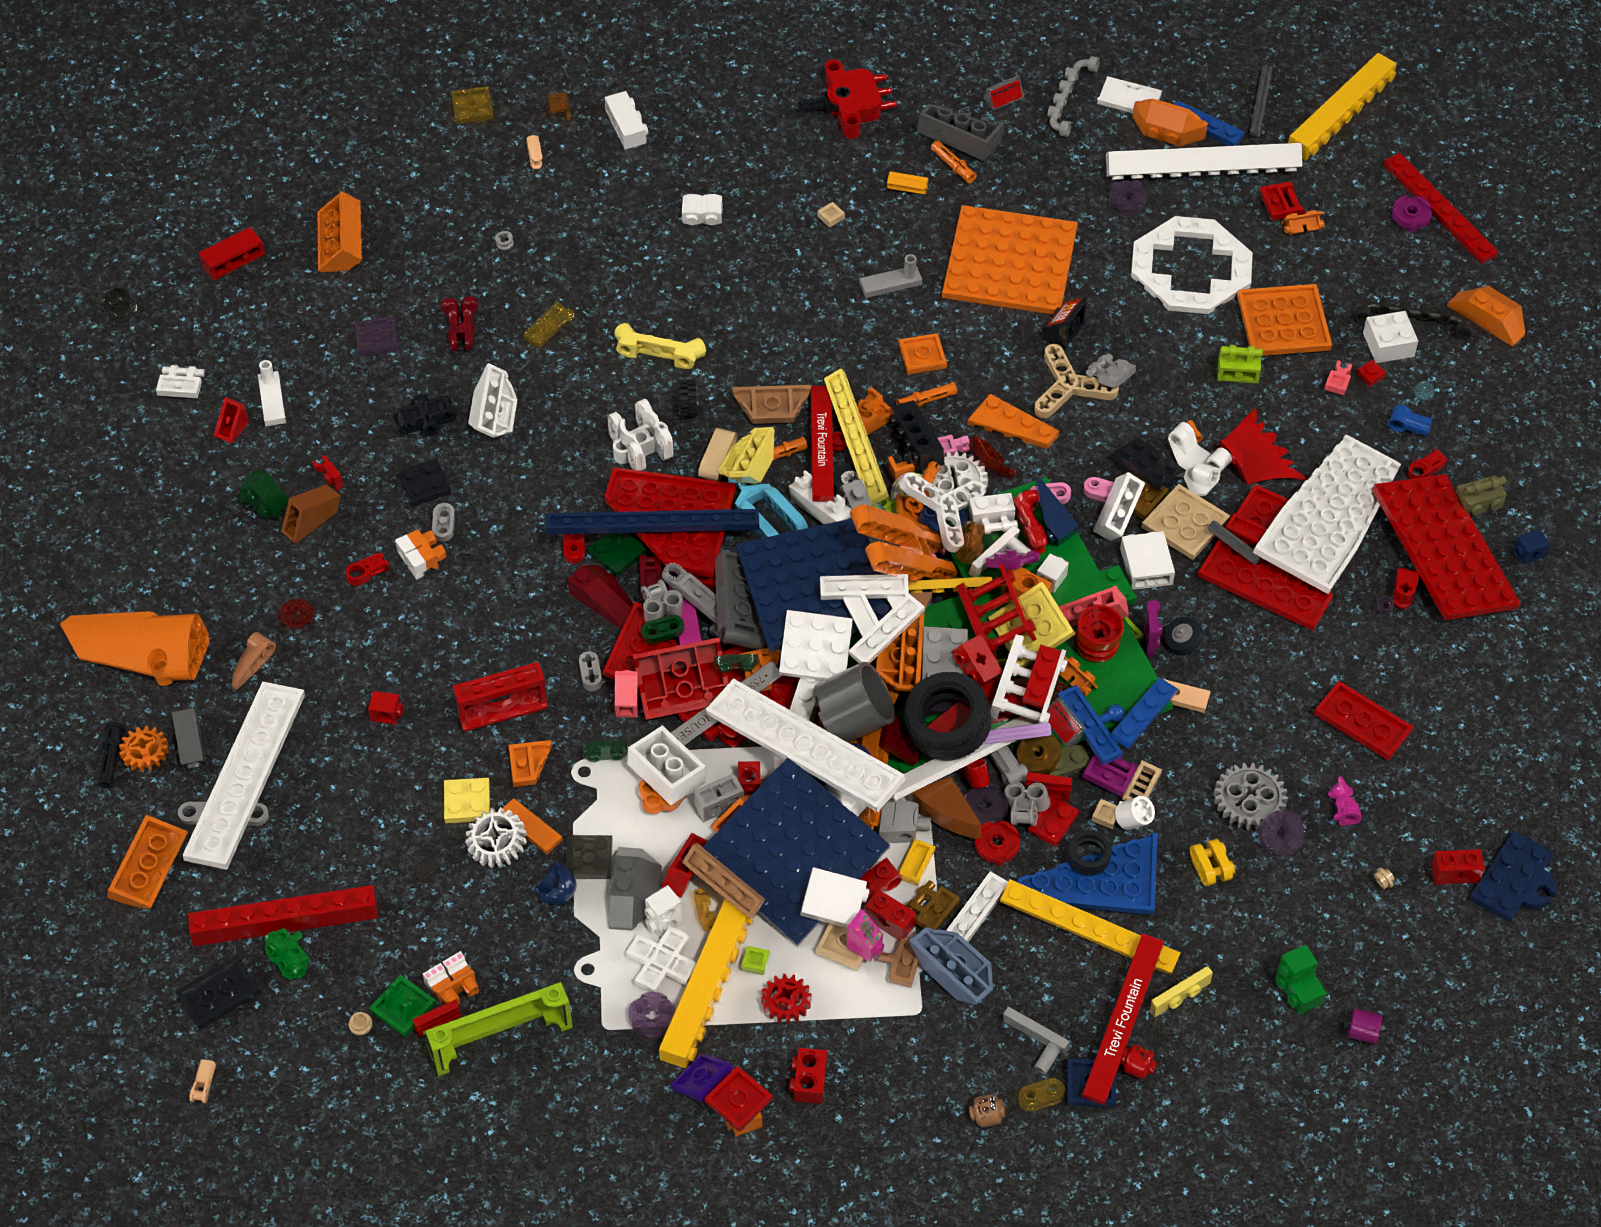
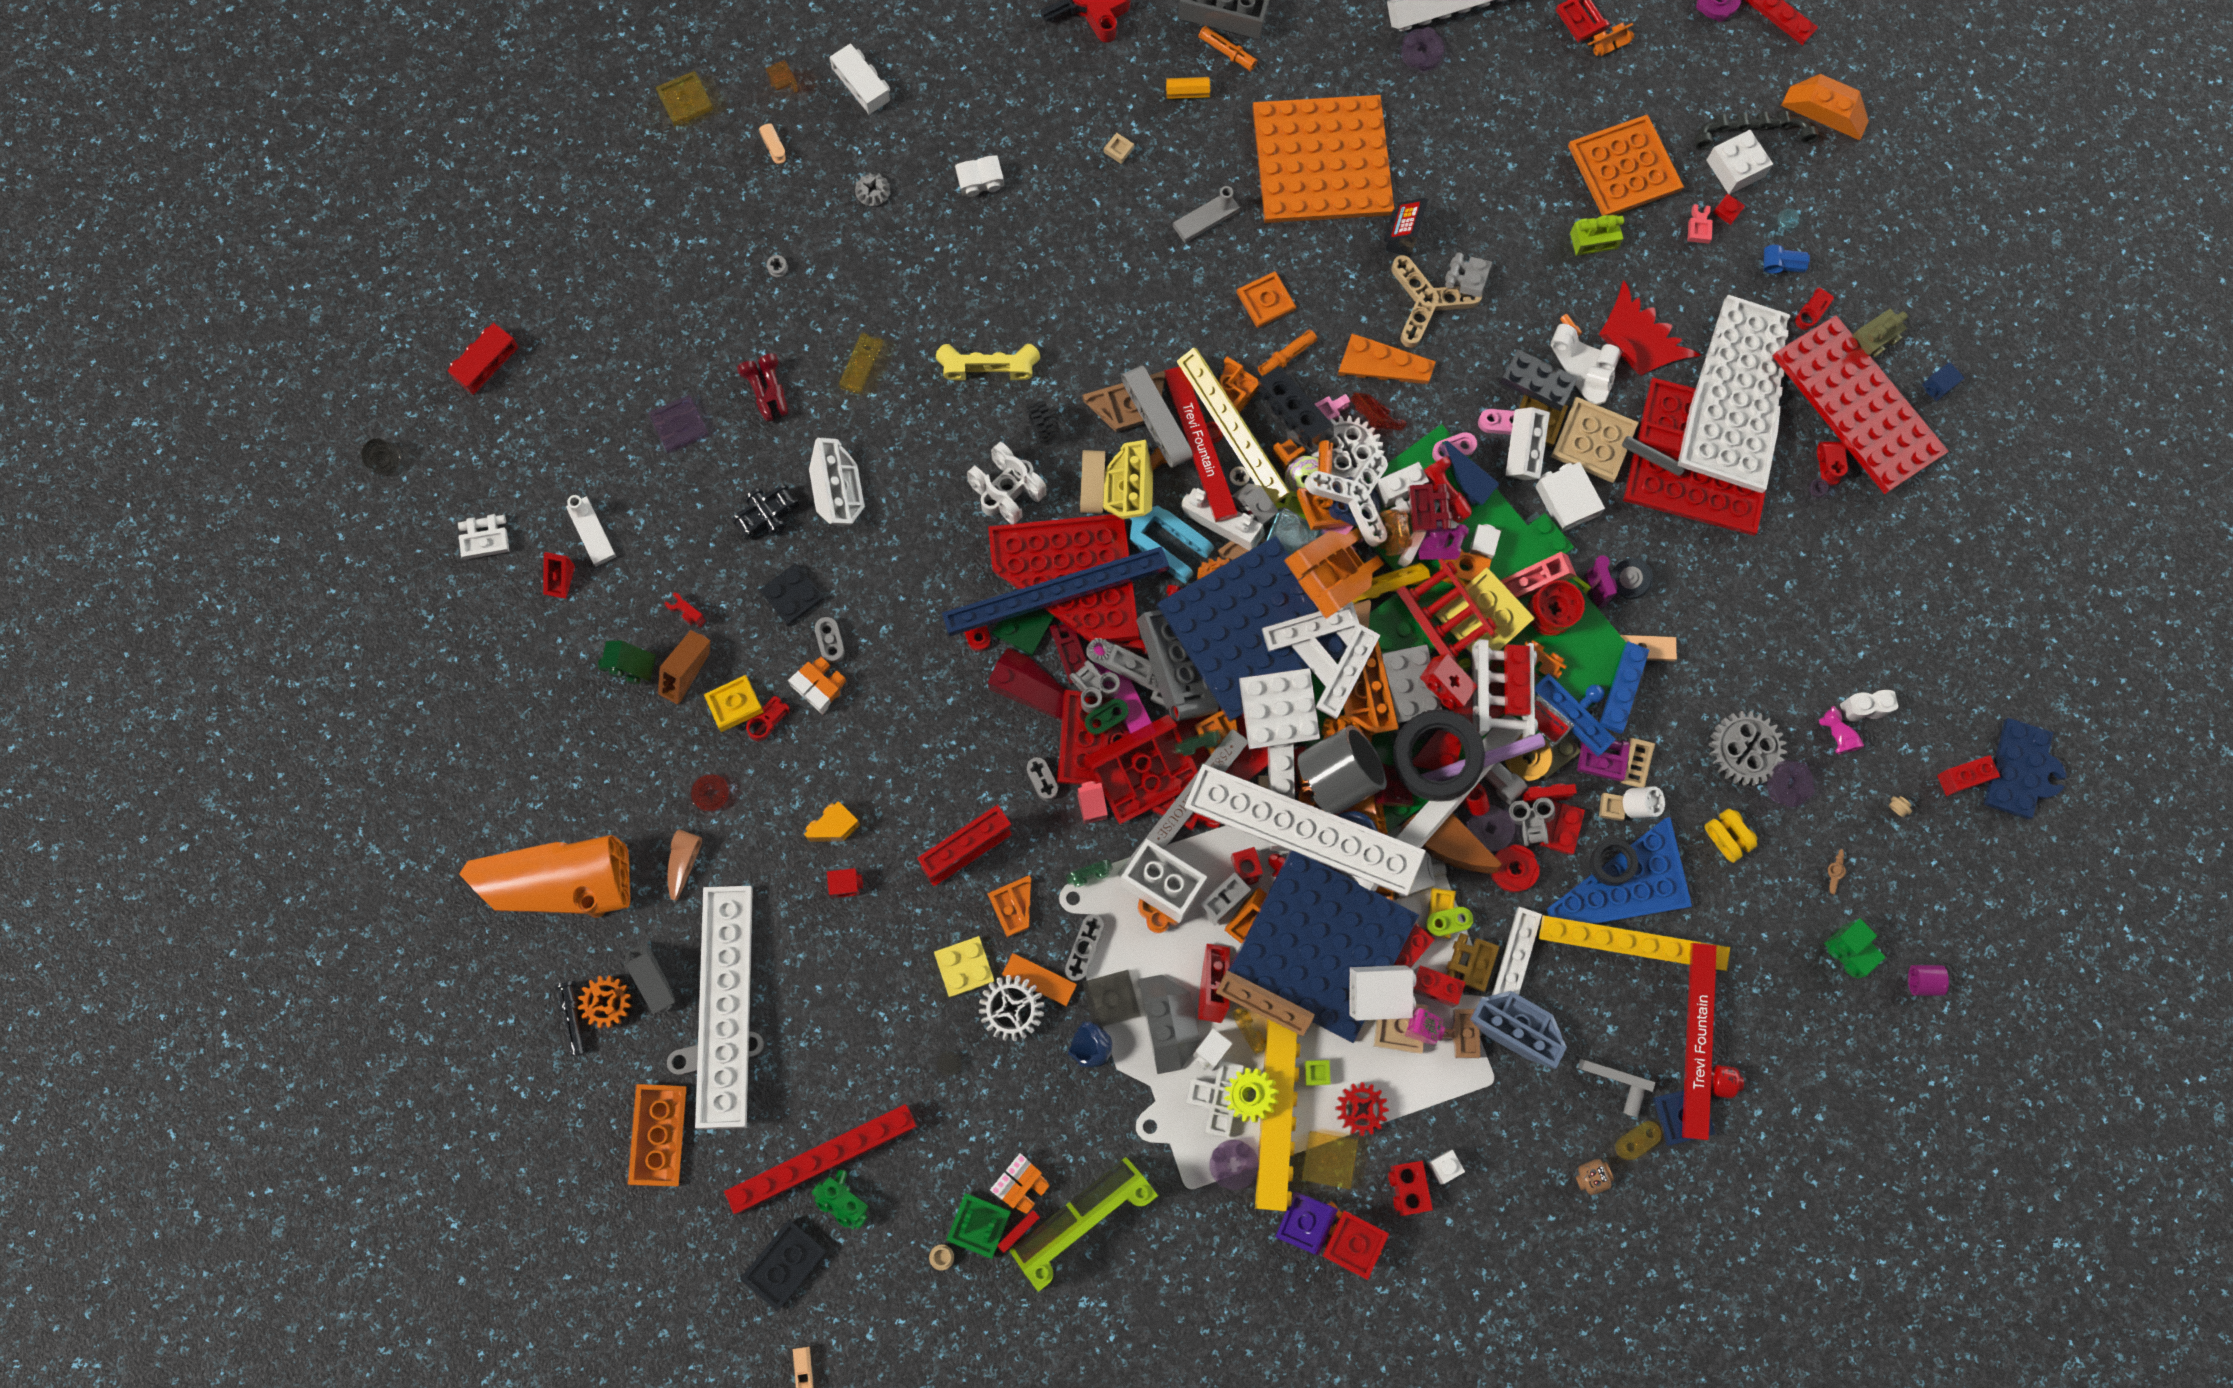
camera: 20 degrees left, 20 degrees up
(339, 234) = (594, 304): orange slope -> none
(342, 549) = (733, 703): none -> yellow plate
(392, 661) = (833, 826): none -> light orange slope
(581, 800) = (1084, 929): none -> light grey beam
(608, 207) = (876, 196): none -> light grey gear
(686, 953) = (1264, 1095): none -> neon yellow gear
(742, 1034) = (1329, 1160): none -> clear yellow plate
(790, 413) = (1156, 416): none -> light grey beam
(848, 1065) = (1445, 1167): none -> white brick
(919, 867) = (1449, 921): none -> lime plate
(1000, 527) = (1423, 508): none -> dark red plate
(1160, 284) = (1536, 85): white plate -> none
(1174, 996) = (1749, 983): light yellow plate -> none
(1305, 917) = (1836, 871): none -> medium nougat piece
(1363, 720) = (1832, 629): red plate -> none
(1378, 787) = (1869, 705): none -> white brick

